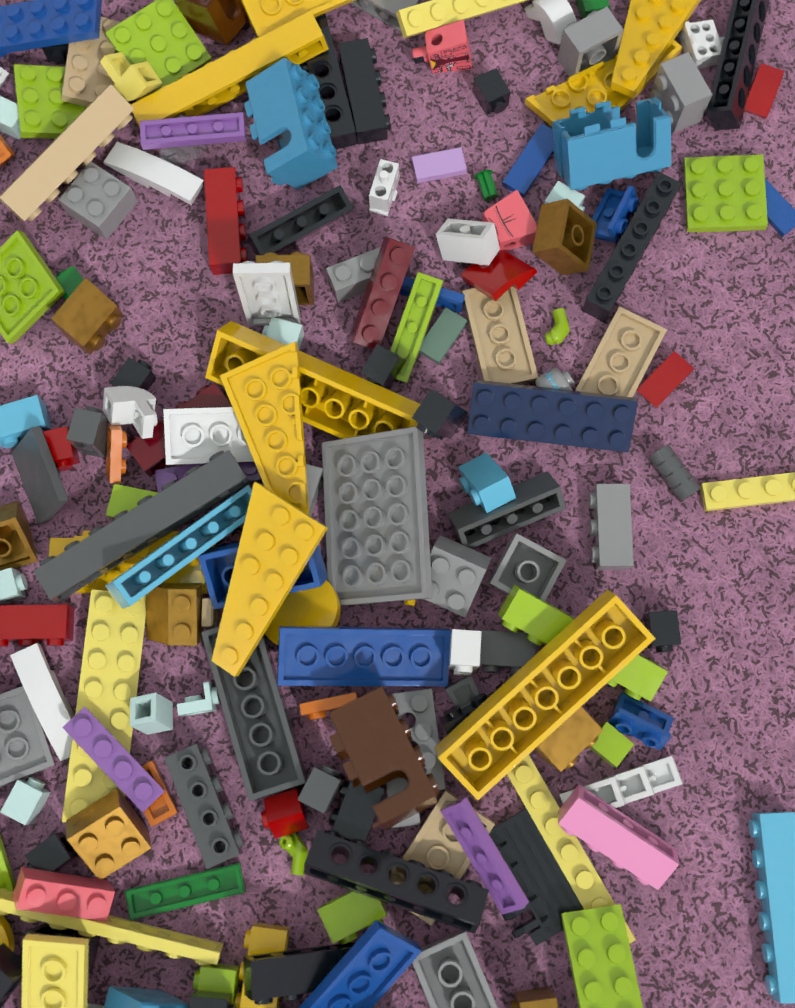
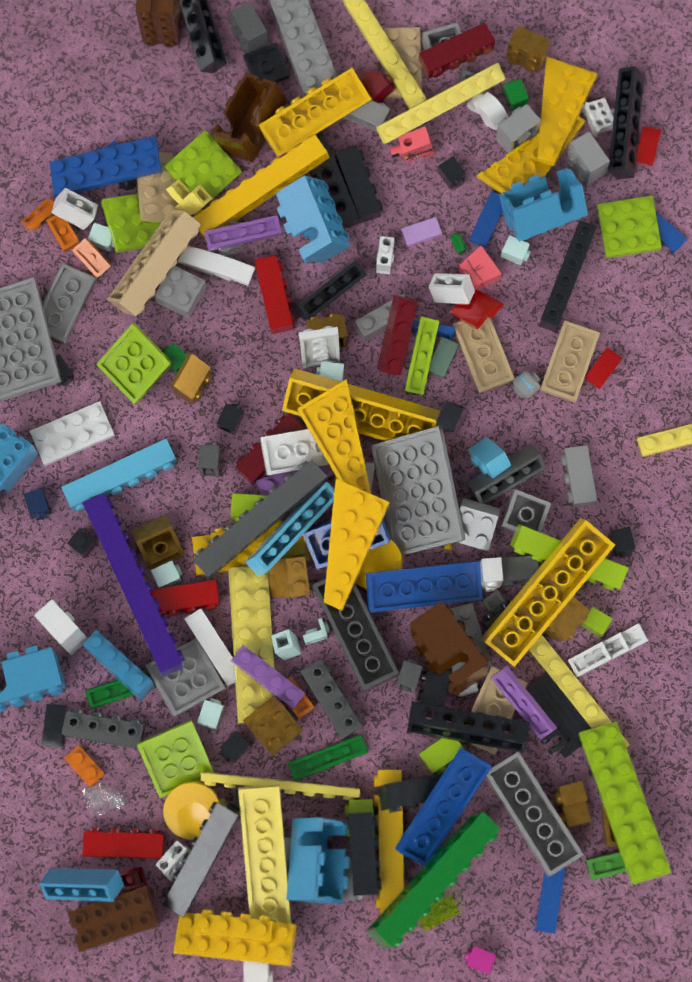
camera: 10 degrees left, 0 degrees up
(39, 475) = (178, 495): dark grey tile -> none
(62, 450) = (187, 474): red brick -> none
(63, 894) = (251, 766): coral brick -> none
(114, 462) = (228, 478): orange plate -> none
(130, 406) = (236, 437): white brick -> none
(209, 615) = (312, 573): tan tile -> none
(284, 814) = (386, 697): red brick -> none
(297, 849) = (397, 720): lime arm -> none
(317, 708) = (396, 627): orange plate -> none
(383, 366) = (405, 386): black brick -> none
(552, 415) = (527, 405): dark blue plate -> none
(560, 329) = (525, 341): lime arm -> none
(564, 237) = (519, 276): pearl gold brick -> none
(614, 213) = (551, 254): blue bracket -> none
(618, 837) = (609, 679): bright pink brick -> none
(641, 721) = (615, 604): blue bracket -> none
(674, 473) = (617, 433): dark grey axle -> none

